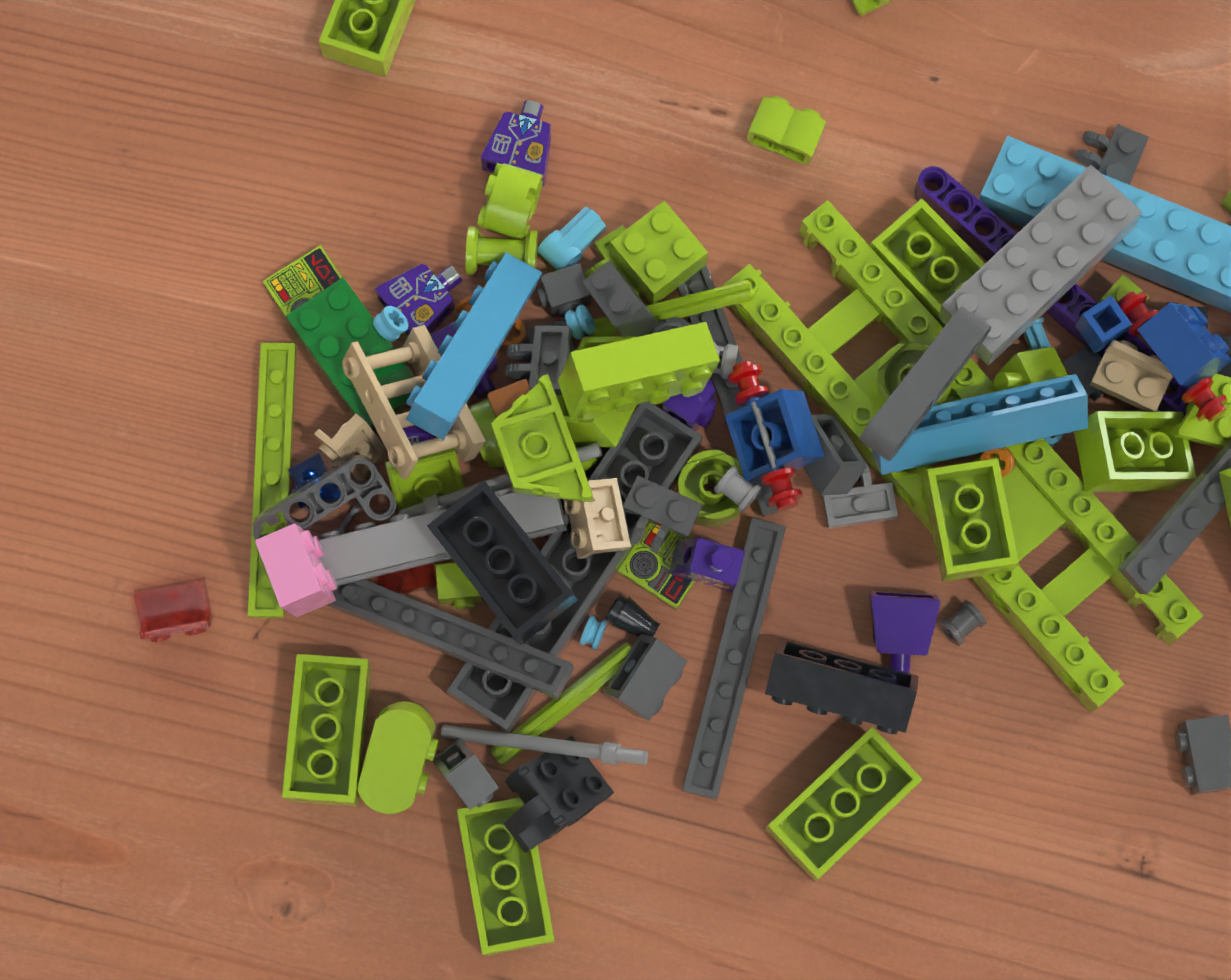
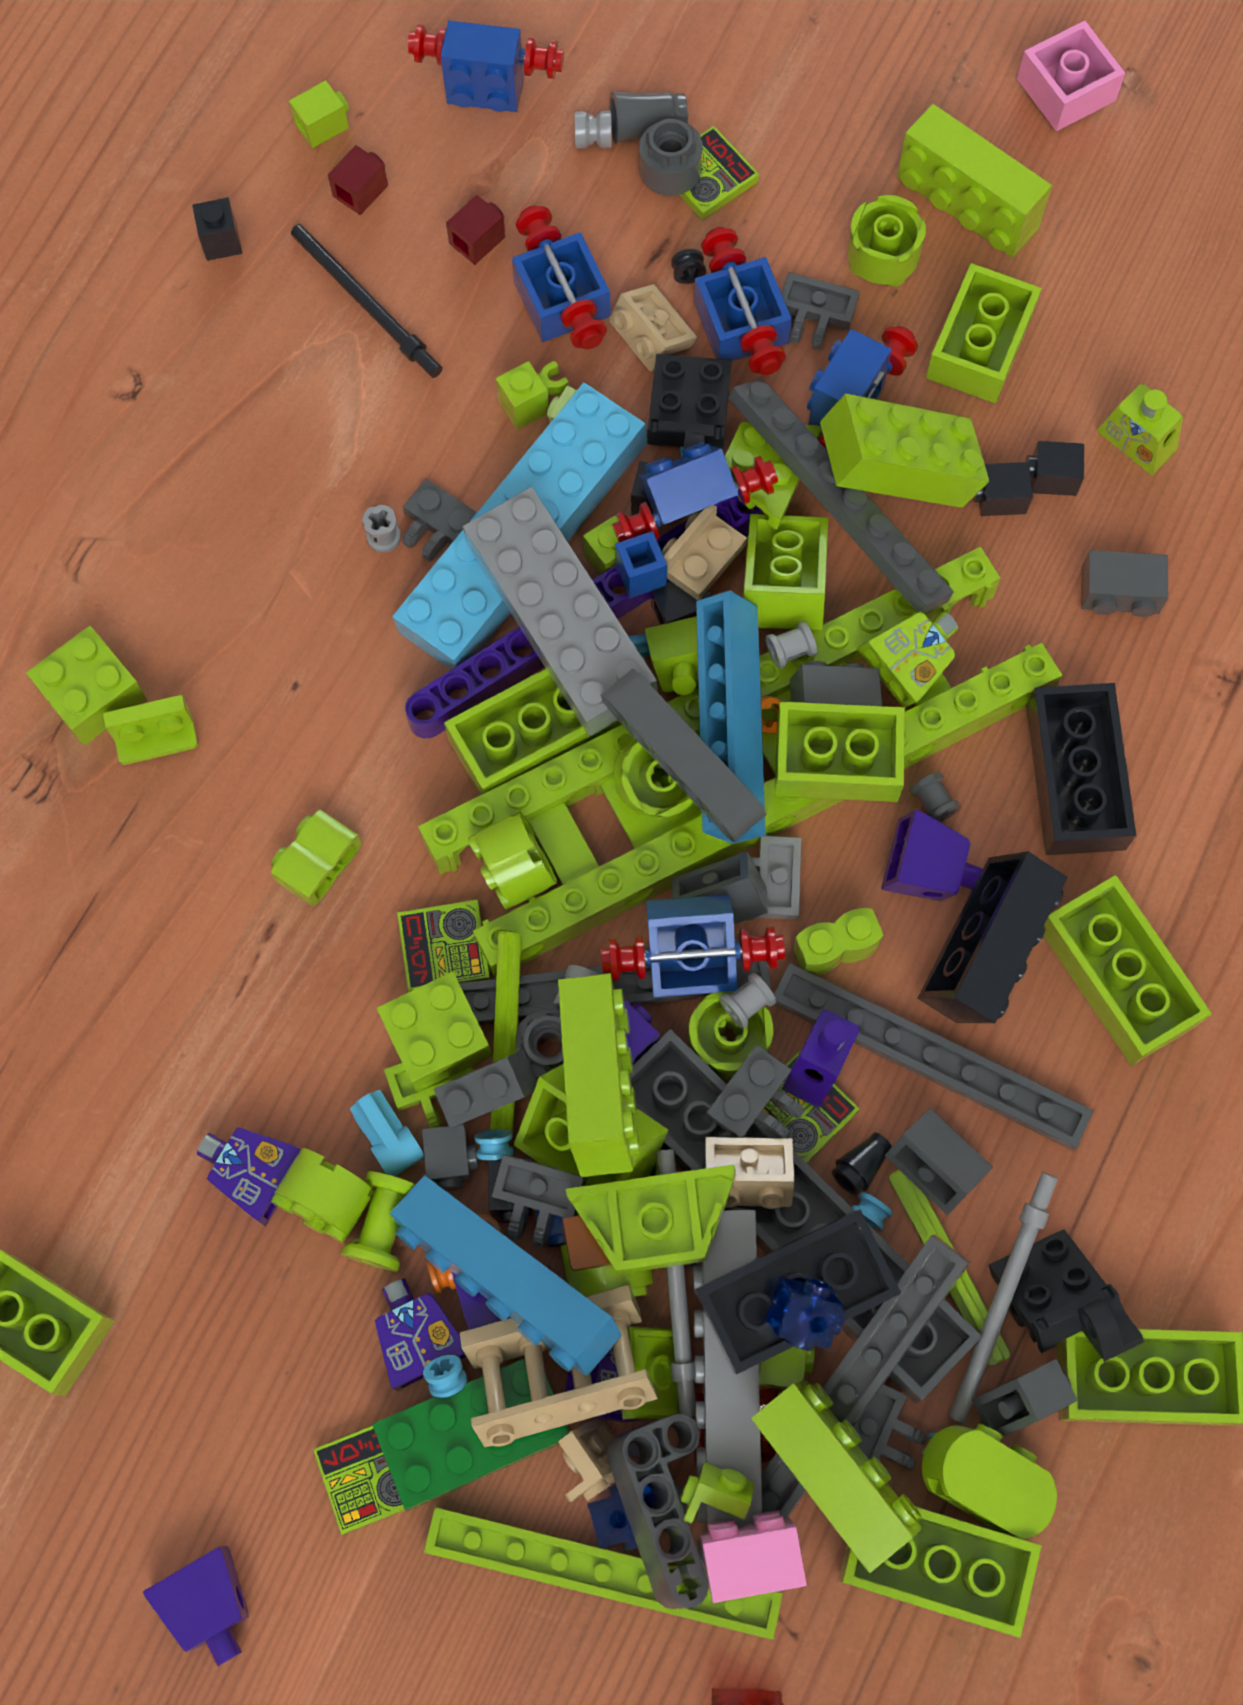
camera: 75 degrees left, 5 degrees down
(193, 193) = (202, 1604): none -> dark purple torso
(343, 539) = (719, 1488): none -> lime bracket
(372, 625) = (838, 1473): none -> lime brick
(419, 662) = (879, 1421): none -> dark grey hinge
(479, 562) = (805, 1313): none -> clear blue brick
(735, 244) = (442, 942): none -> tile
(815, 280) = (512, 860): none -> lime brick
(819, 570) = (847, 940): none -> lime brick
(1017, 739) = (1080, 769): none -> black brick
(1030, 512) = (836, 684): none -> dark grey brick
(1060, 464) = (791, 645): none -> light grey bush
(1081, 570) = (911, 654): none -> lime torso
(1086, 120) = (385, 538): none -> light grey bush

